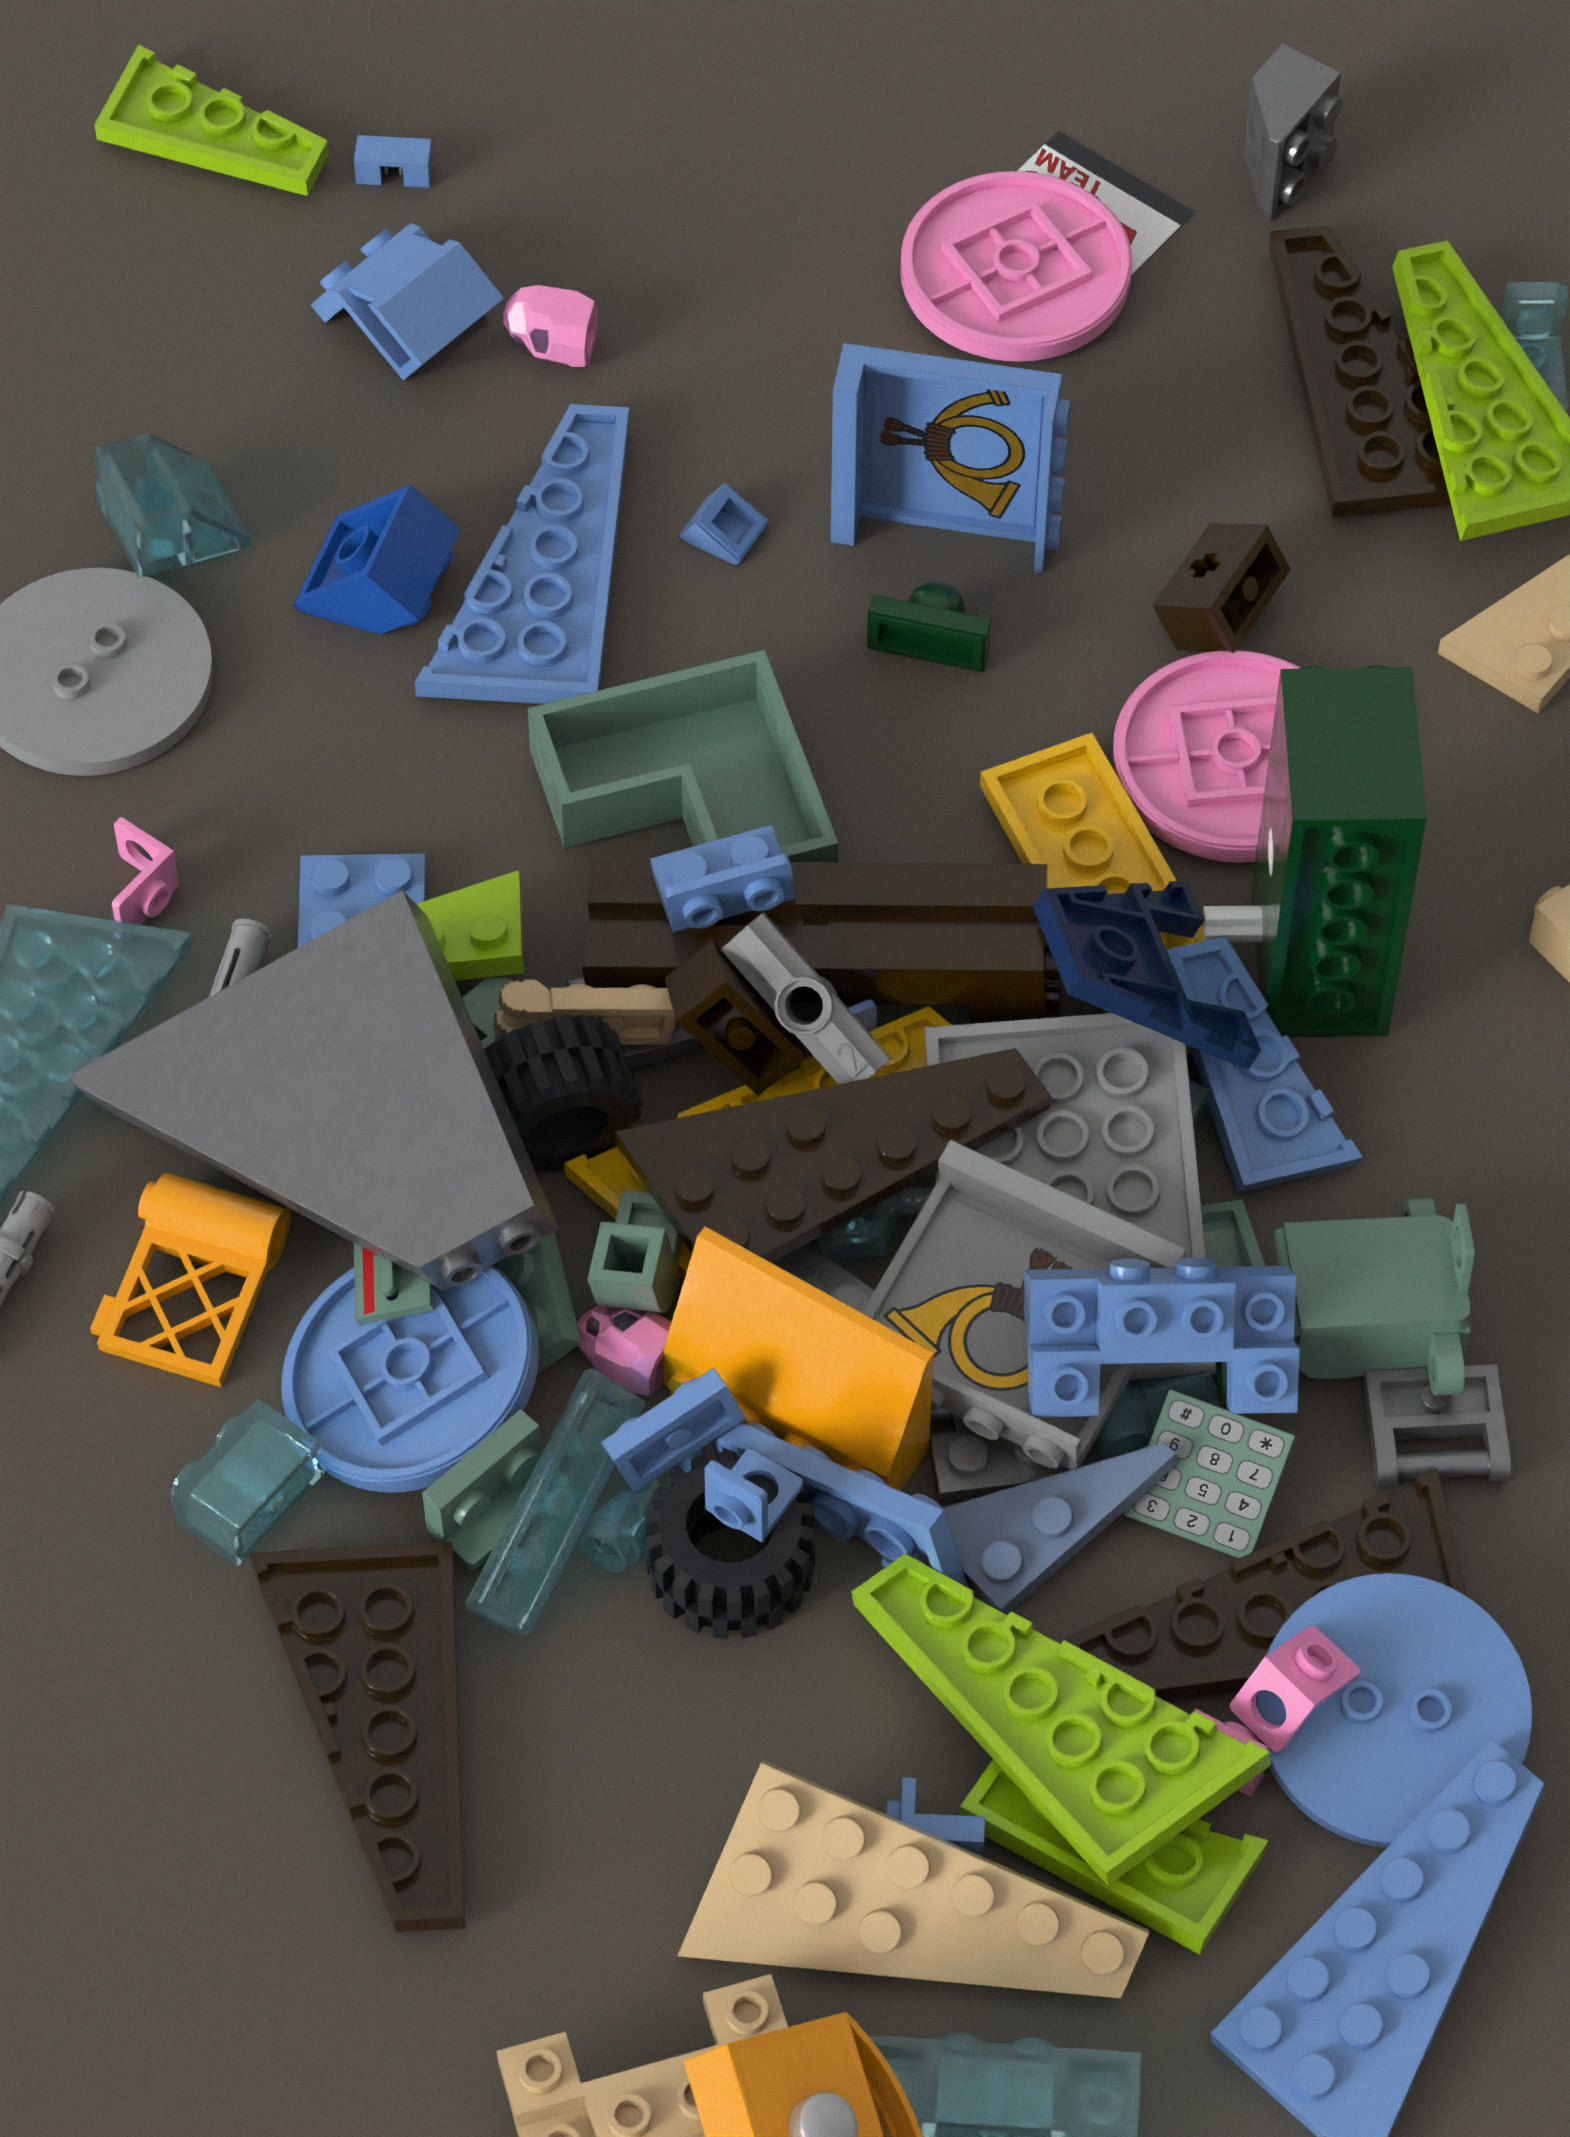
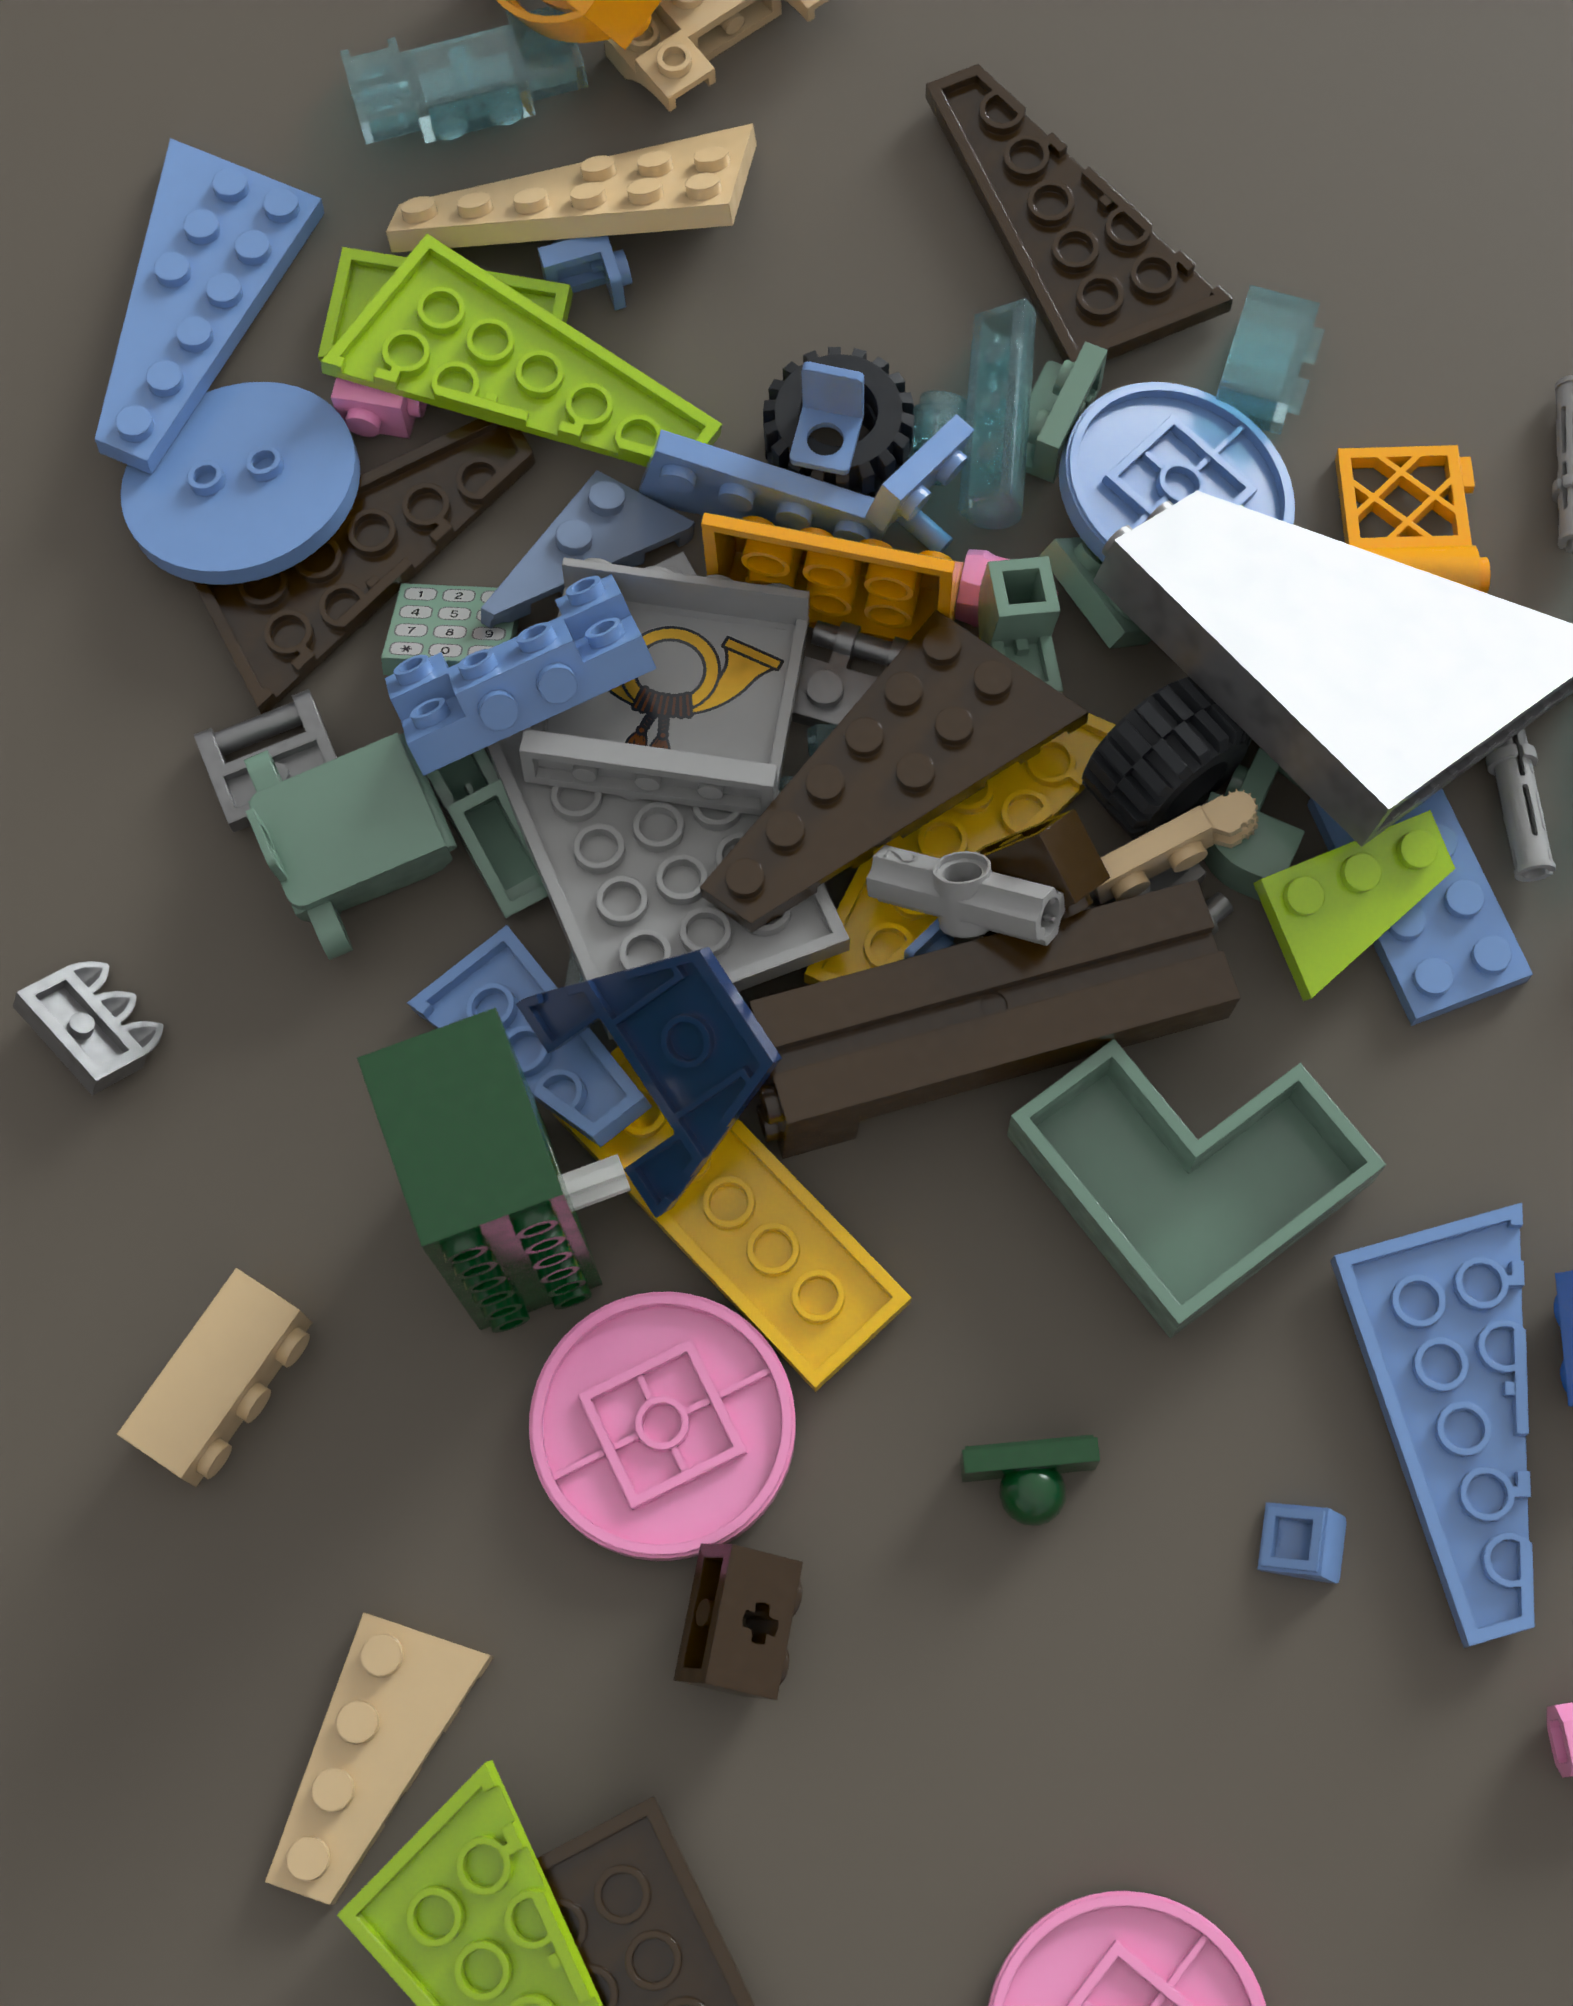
camera: 165 degrees right, 15 degrees up
(723, 879) = (1098, 995): medium blue bracket -> none
(948, 446) = (1190, 1606): medium blue panel -> none
(1302, 1675) = (311, 444): bright pink bracket -> none

